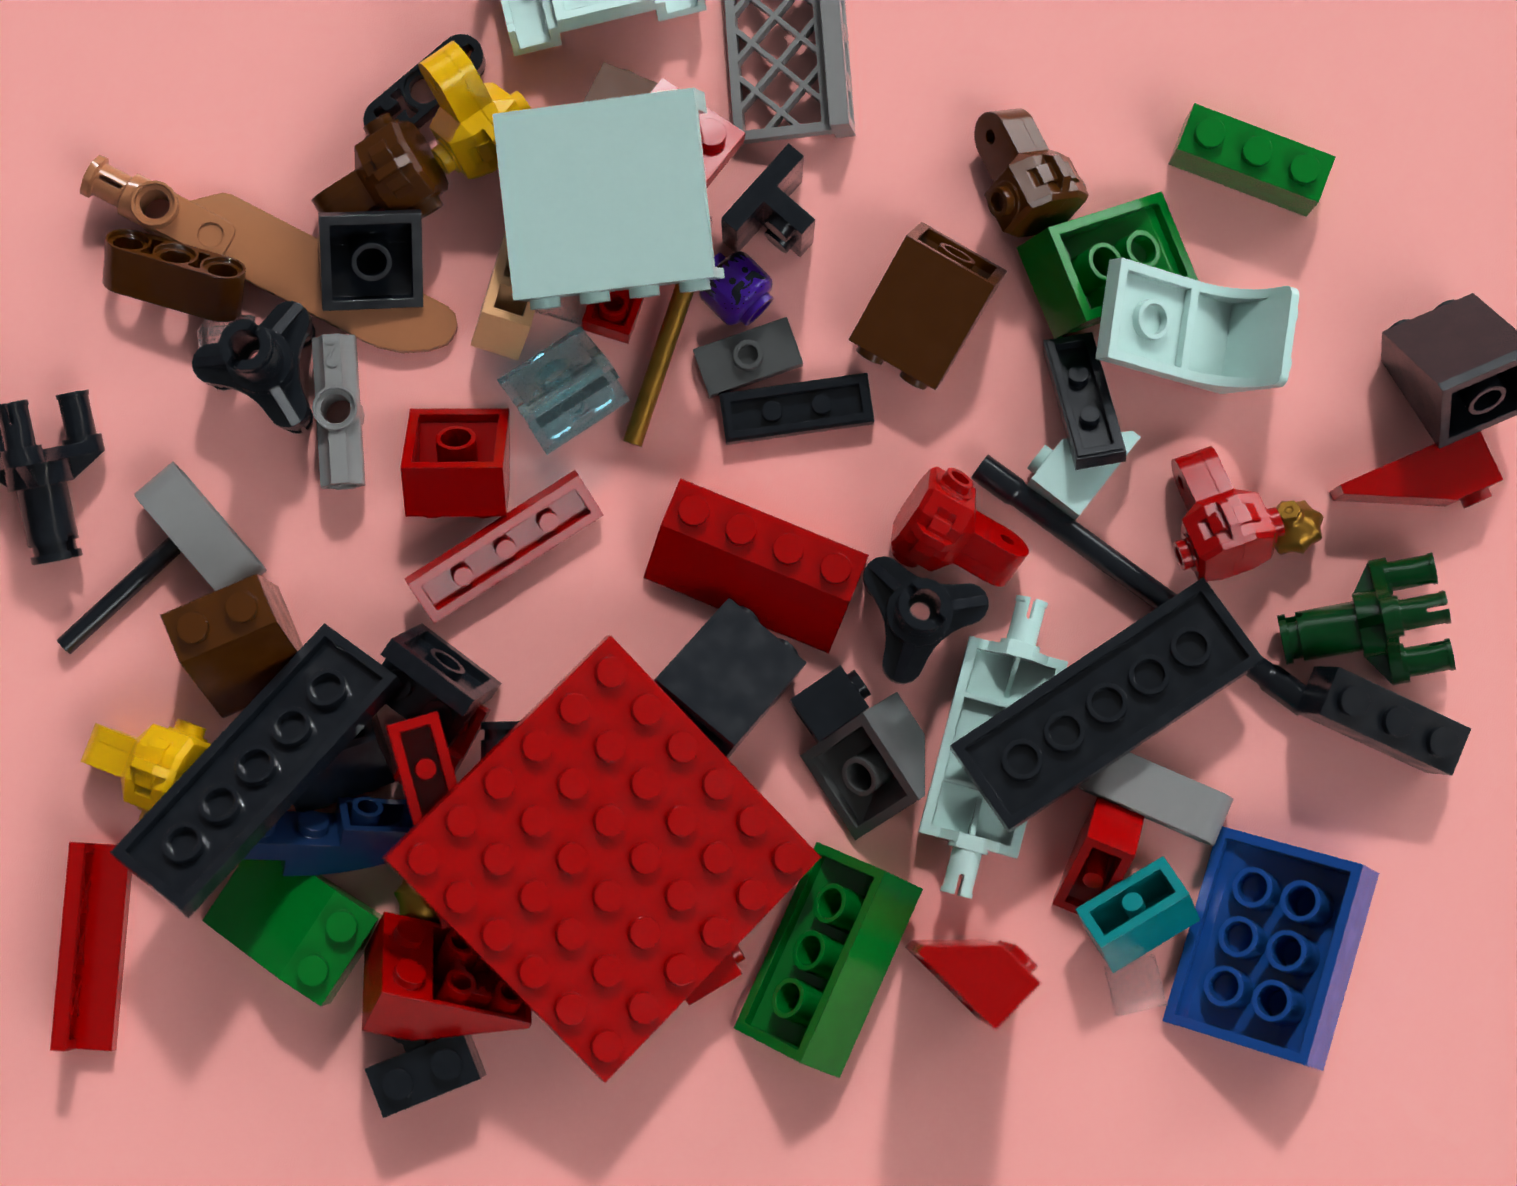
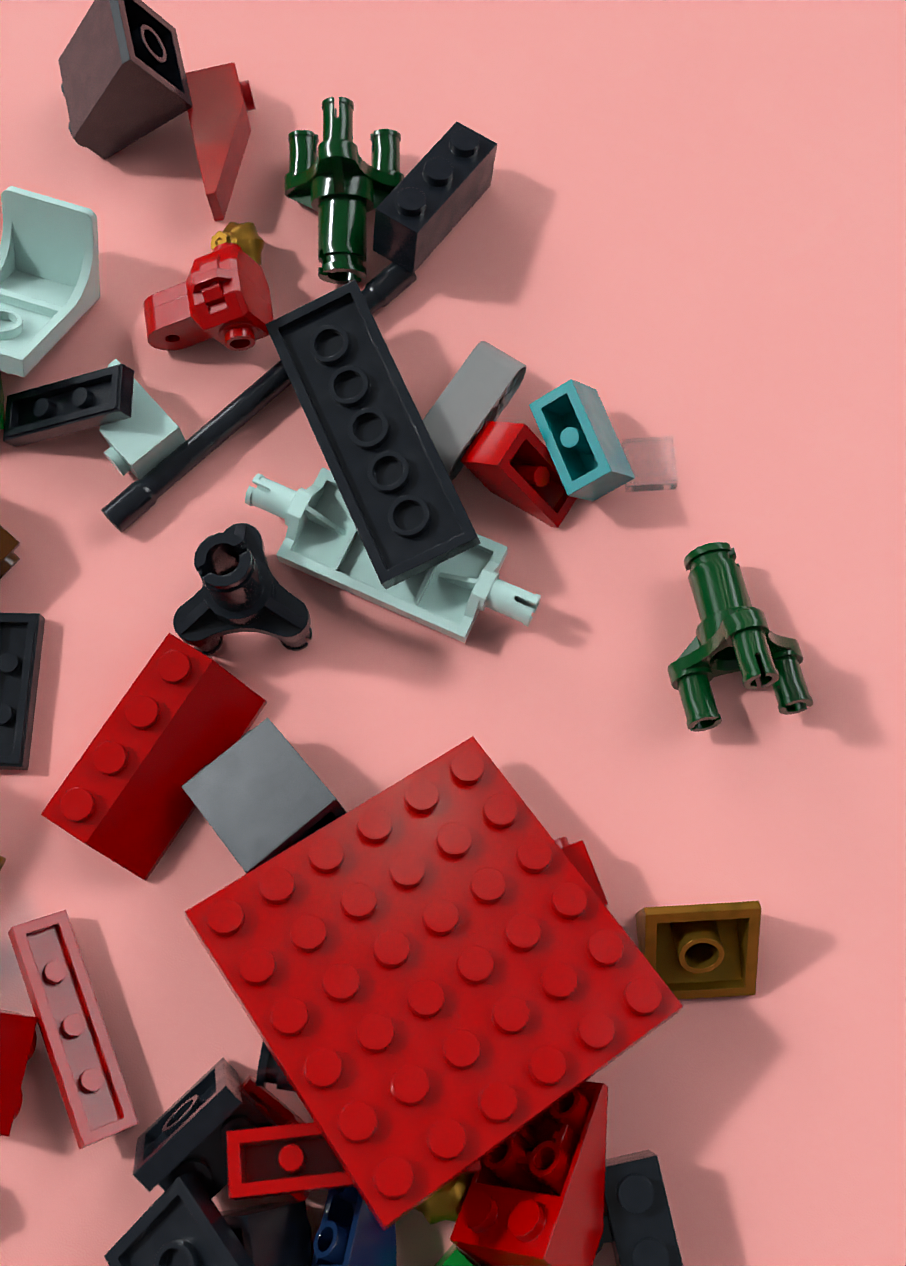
camera: 75 degrees left, 10 degrees down
(664, 1096) = (703, 947): none -> pearl gold slope
(828, 960) = (581, 752): green slope -> none
(831, 702) = (316, 704): black brick -> none
(871, 765) = (389, 673): dark grey slope -> none
(943, 528) = (156, 557): red piece -> none
(959, 1091) = (732, 640): none -> dark green wheel
(981, 974) = (627, 581): red slope -> none
(1271, 947) = (632, 332): blue slope -> none

